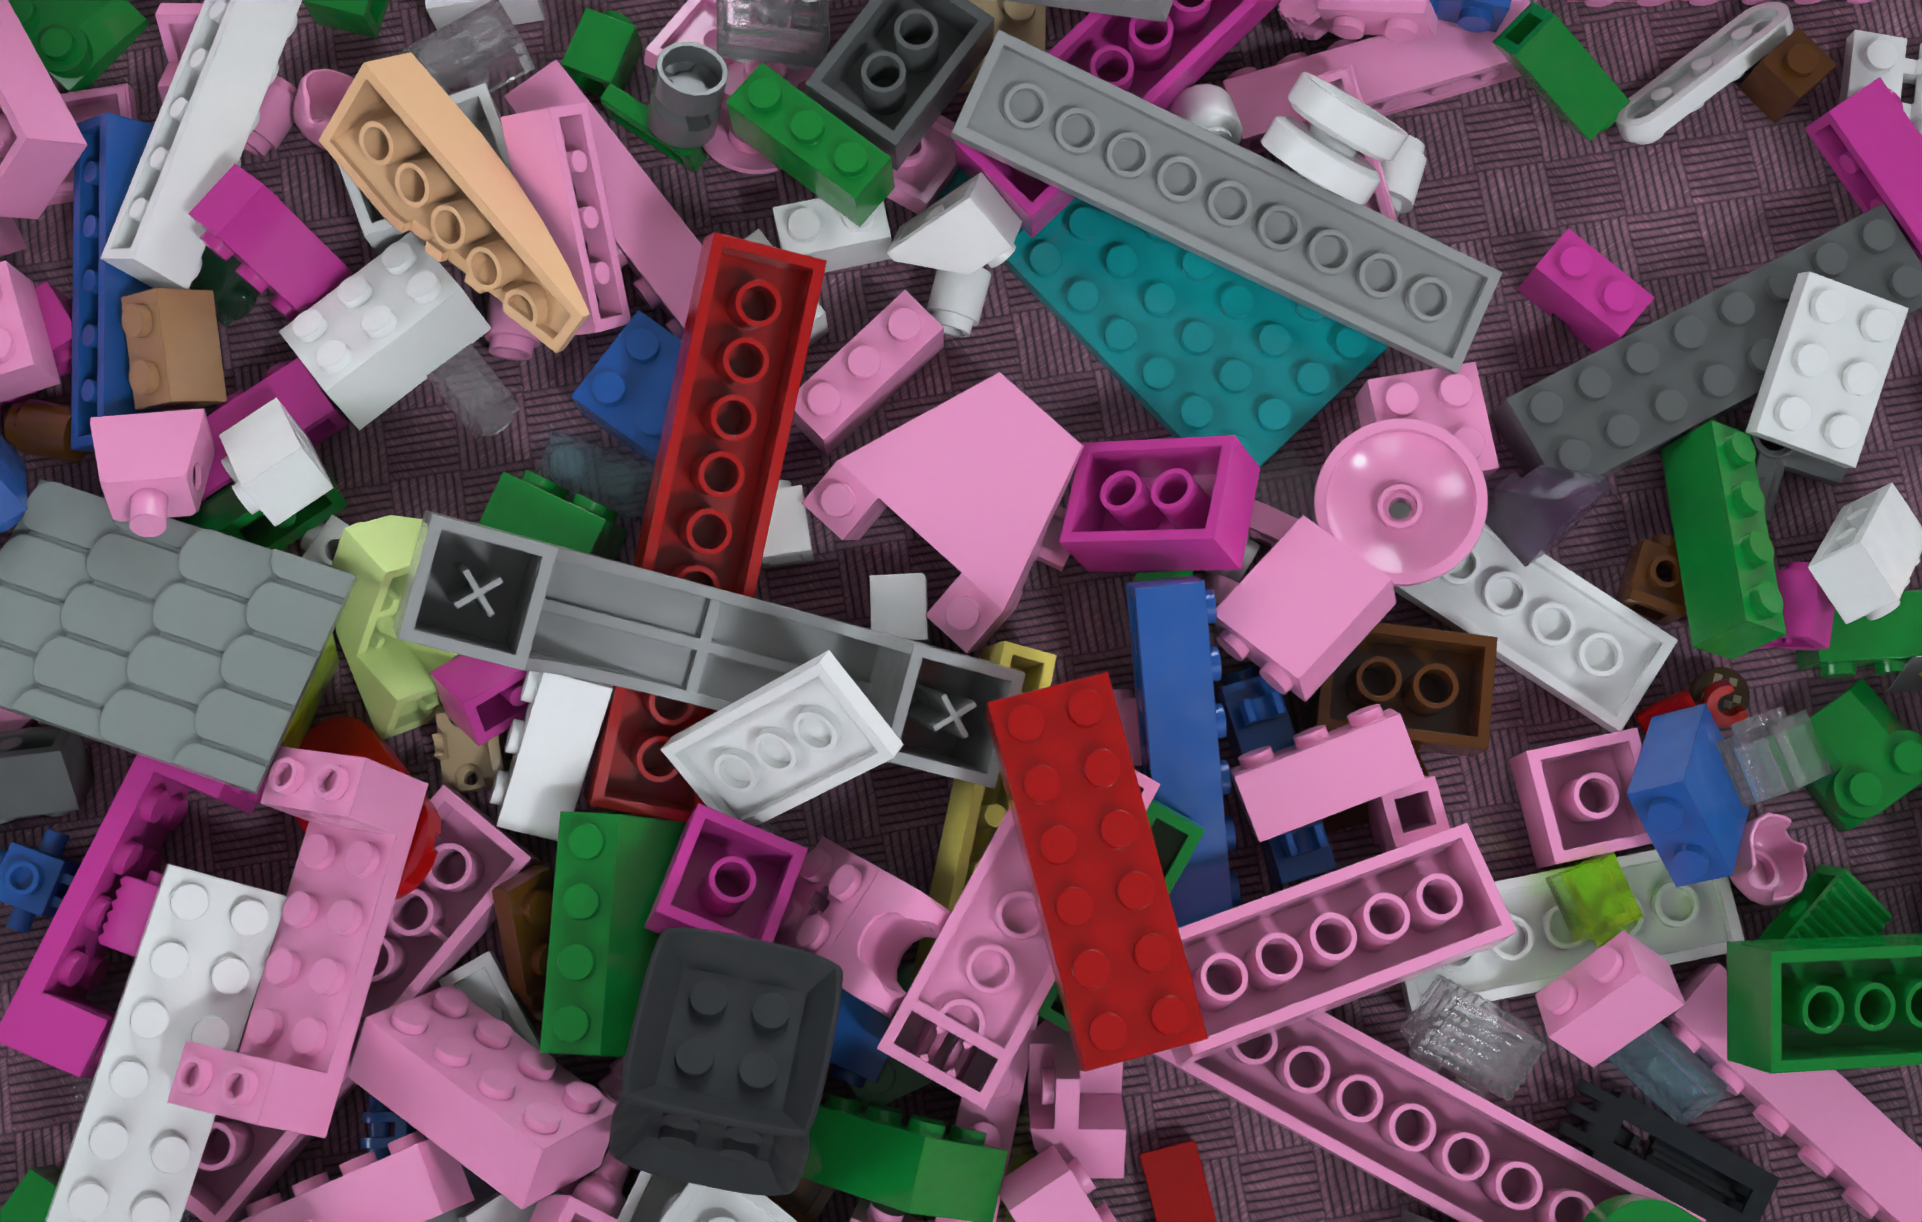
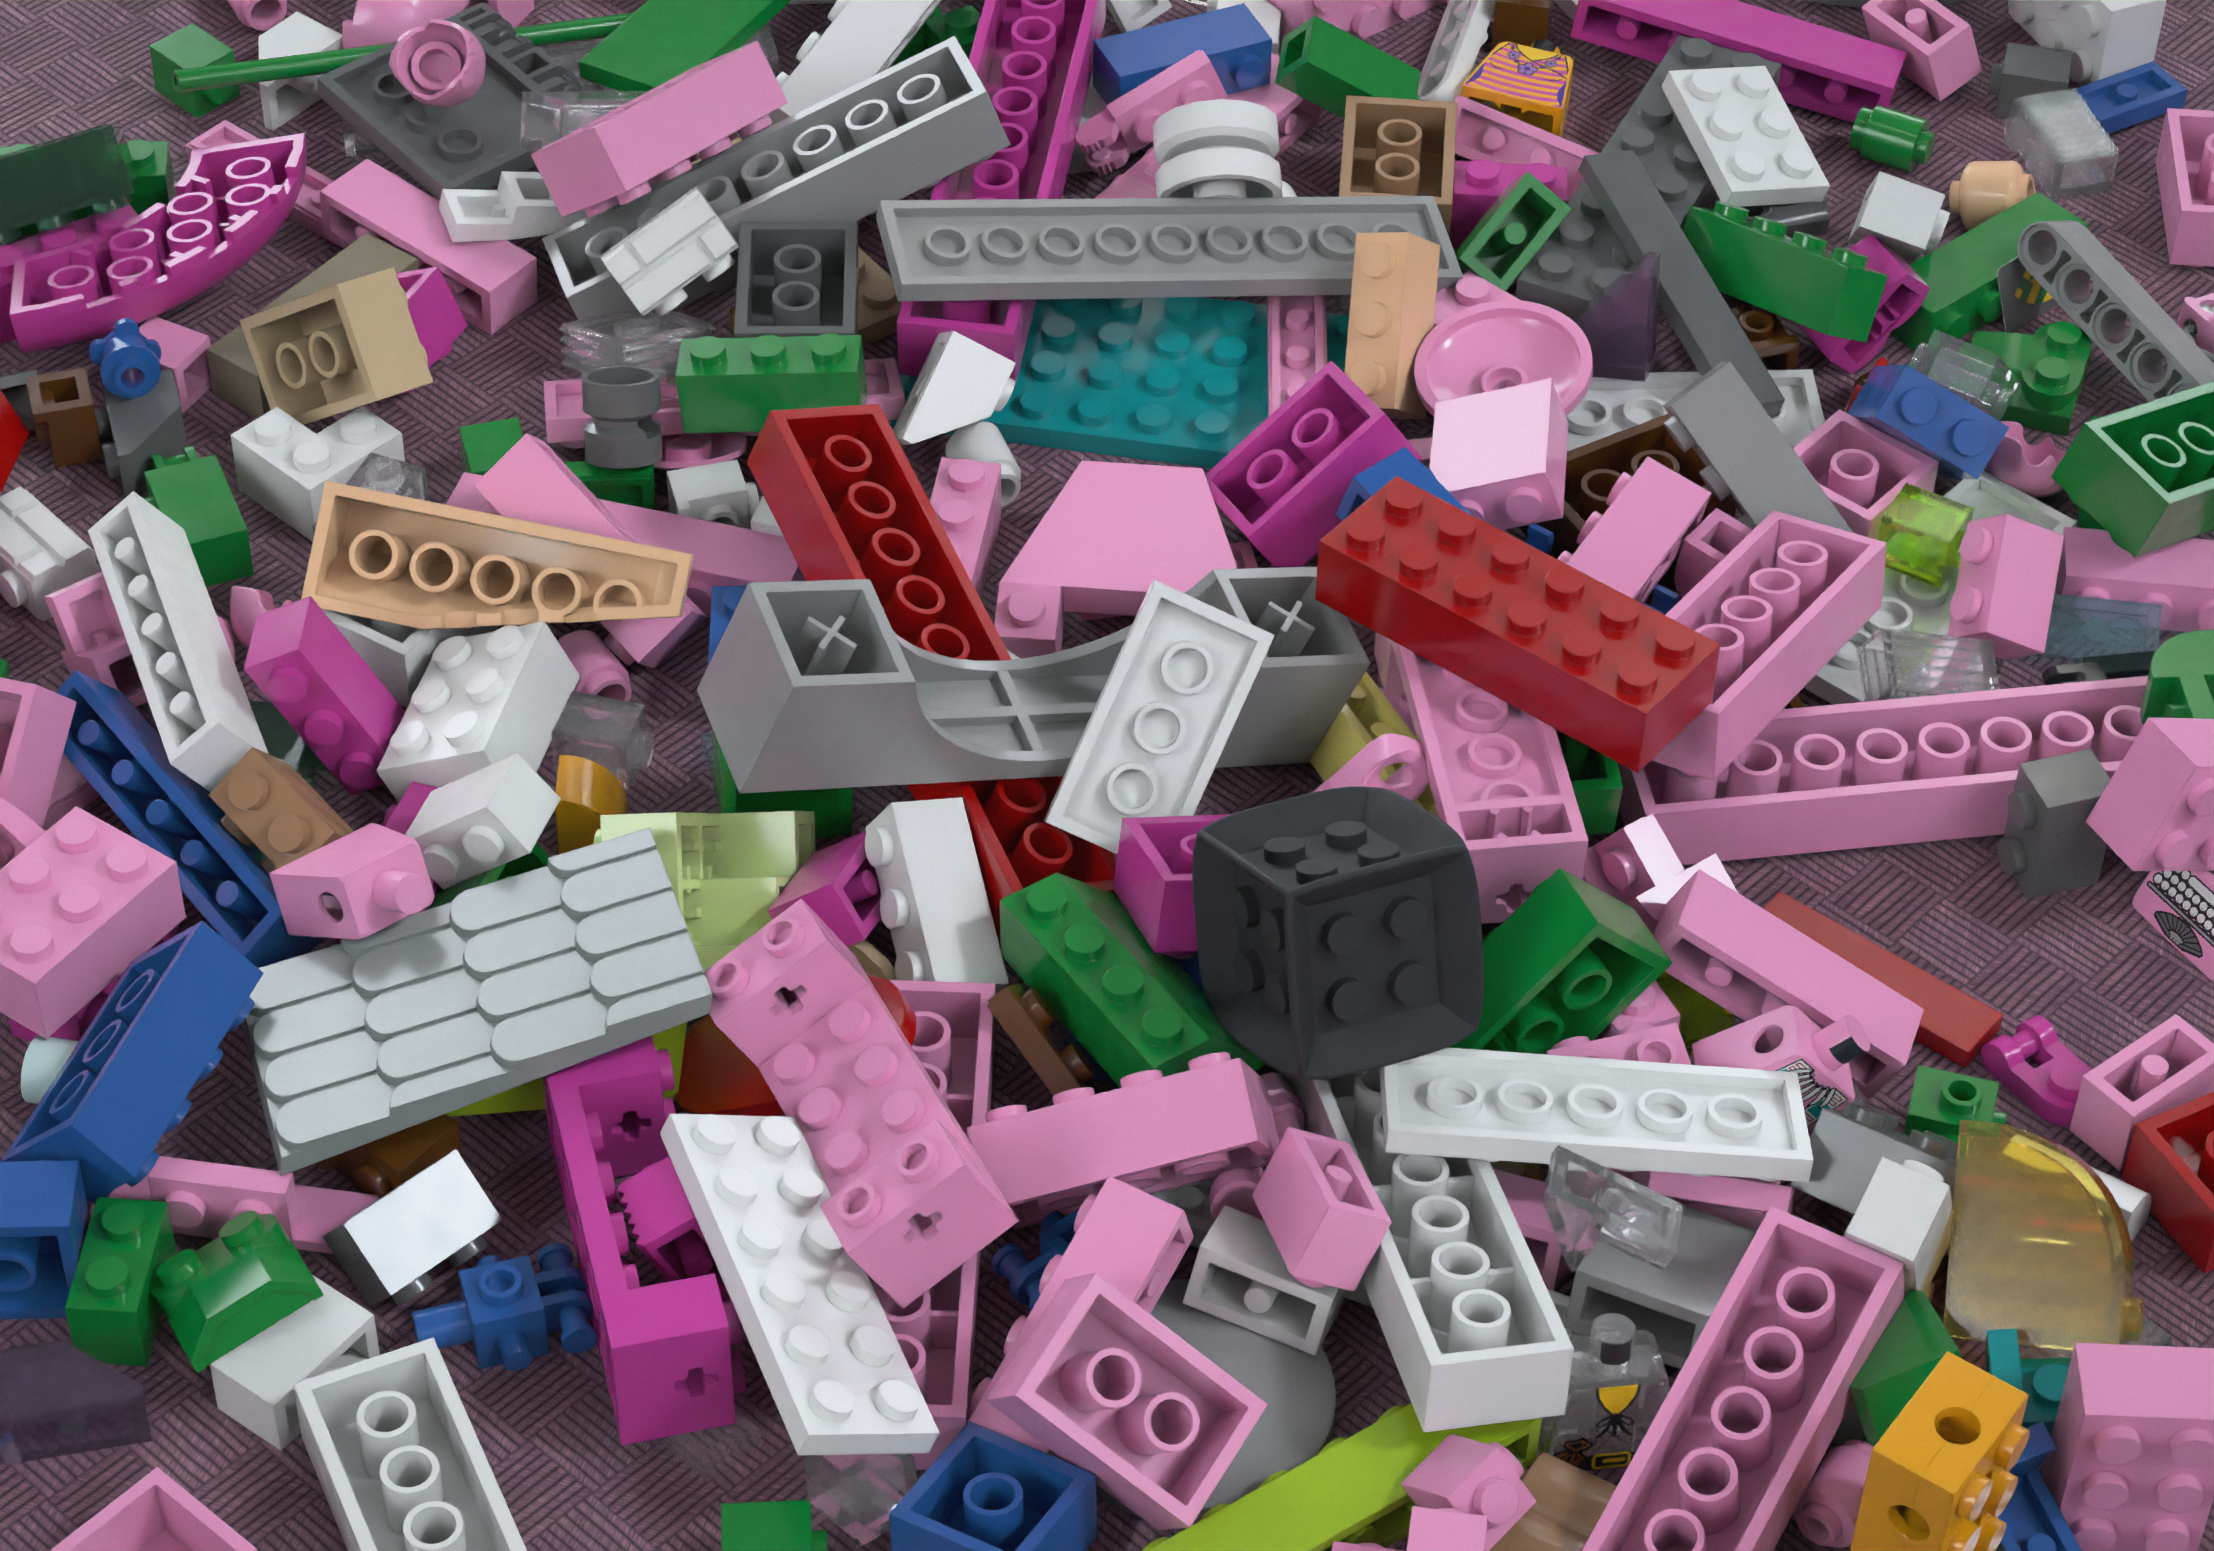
camera: 35 degrees left, 35 degrees down
(419, 454) = (585, 794): none -> light orange brick
(724, 201) = (713, 493): none -> white brick
(1258, 371) = (1294, 344): none -> bright pink tile
(1350, 389) = (1391, 317): none -> light nougat brick
(1495, 770) = (1745, 451): none -> light grey brick
(1522, 196) = (1399, 149): none -> medium nougat brick
(1535, 347) = (1511, 231): none -> green brick
(1627, 512) = (1685, 287): none -> dark grey tile
(1652, 230) = (1504, 139): none -> bright pink plate
(1710, 164) = (1525, 83): none -> torso

